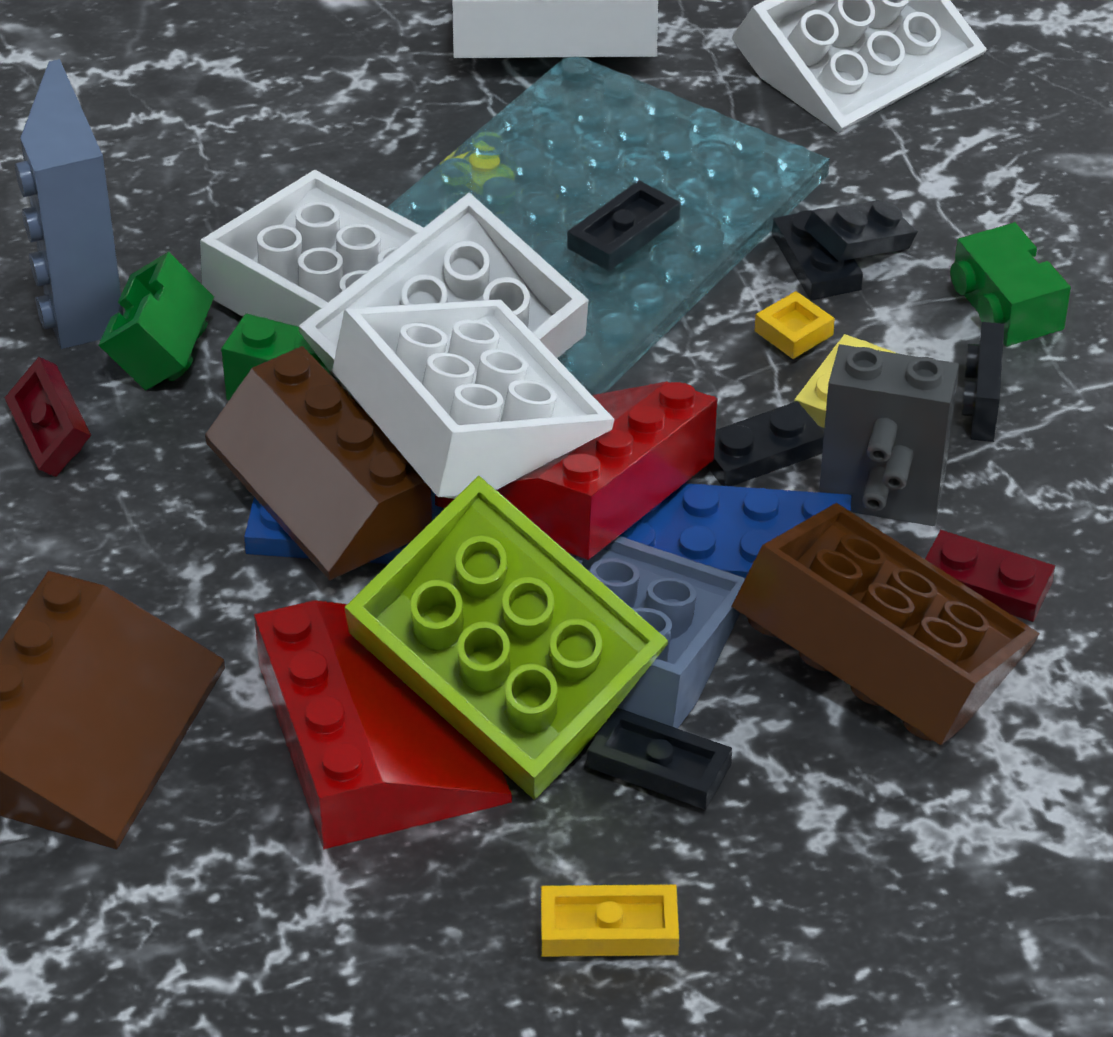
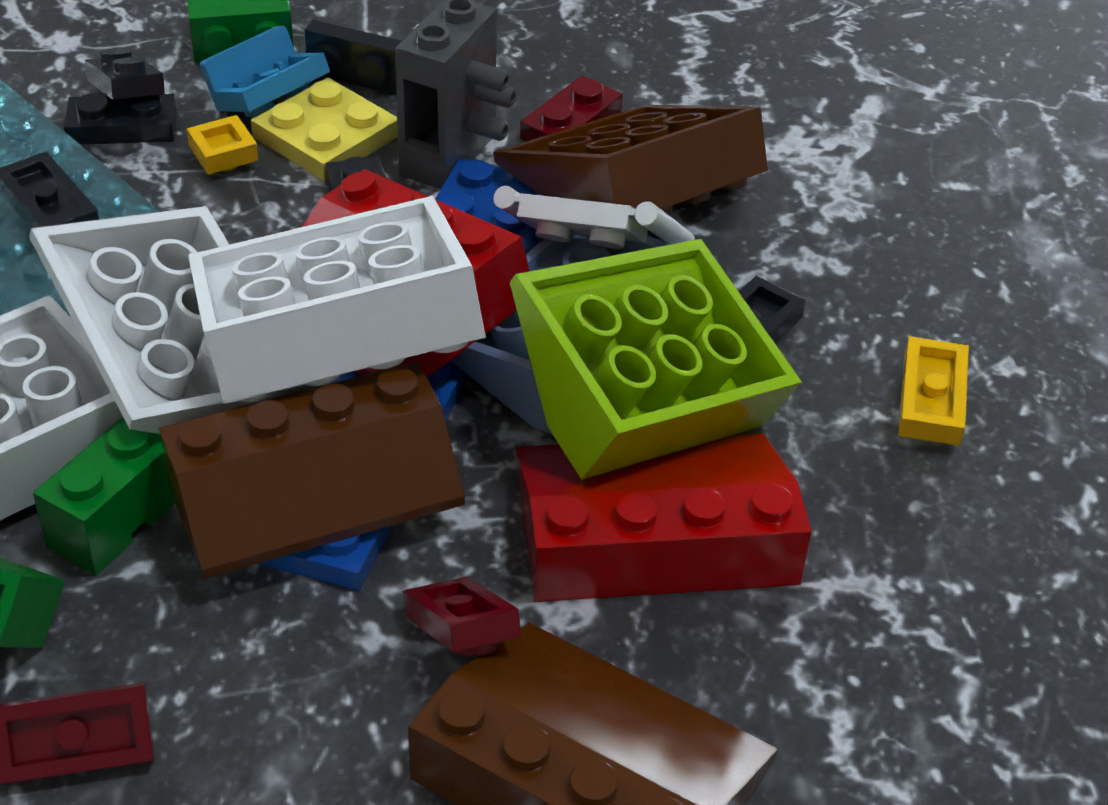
camera: 80 degrees left, 0 degrees up
(193, 594) = (462, 615): none -> dark red plate
(703, 573) = (604, 222): none -> white plate
(920, 317) = (260, 71): none -> dark azure bracket

